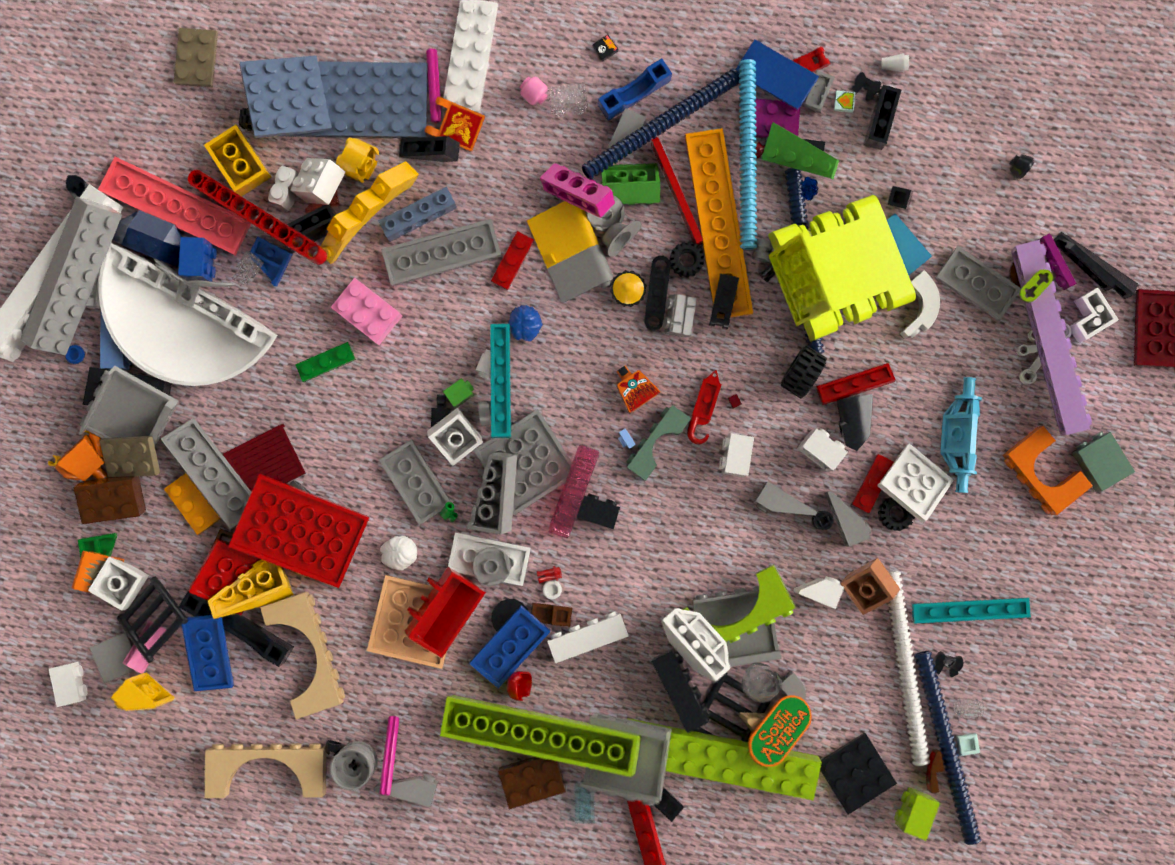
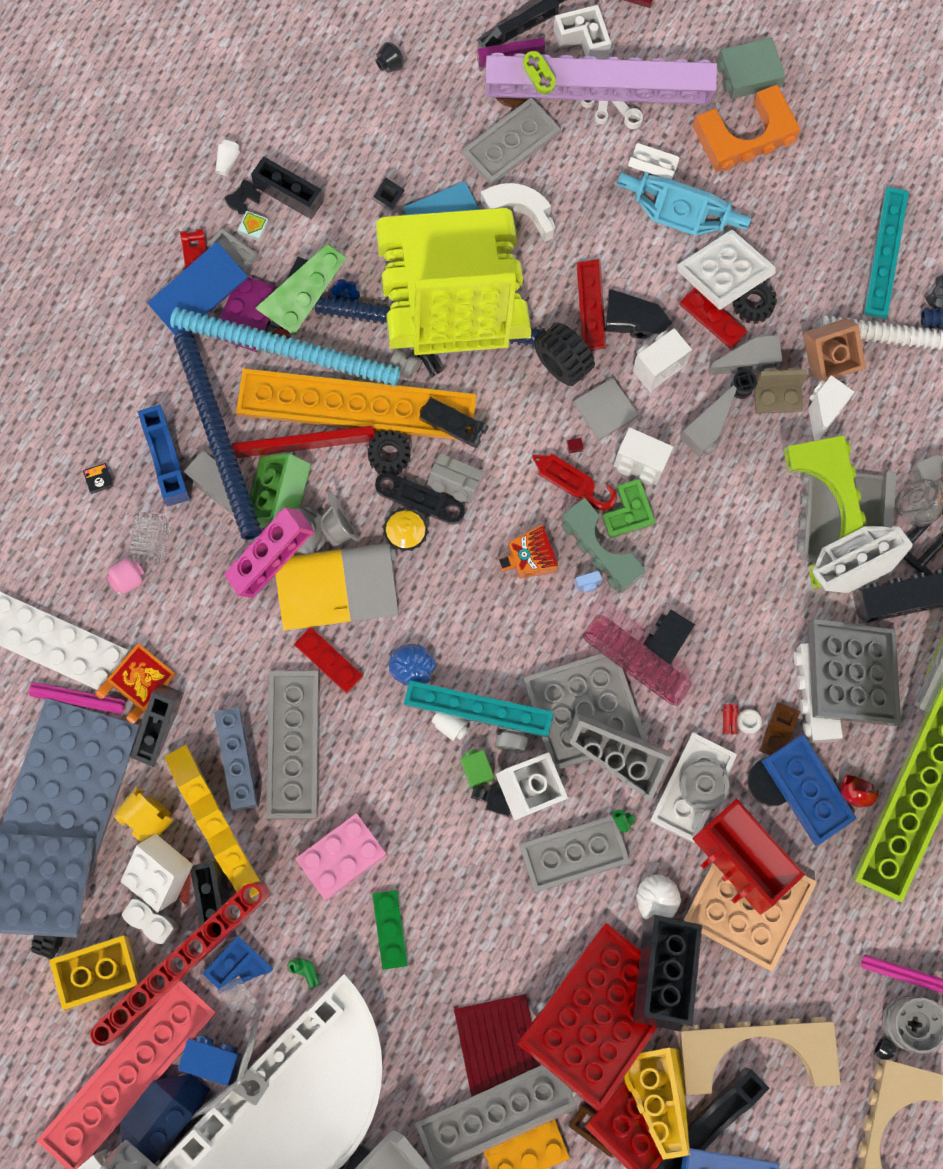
camera: 80 degrees left, 10 degrees down
(282, 309) = (304, 968): none -> green arm
(341, 572) = (667, 973): none -> black brick
(608, 660) = (854, 672): none -> dark grey plate
(690, 461) = (635, 512): none -> bright green plate
(771, 417) = (605, 409): none -> light grey tile
(823, 551) = (779, 391): none -> dark tan bracket
(993, 402) = (654, 161): none -> white bracket

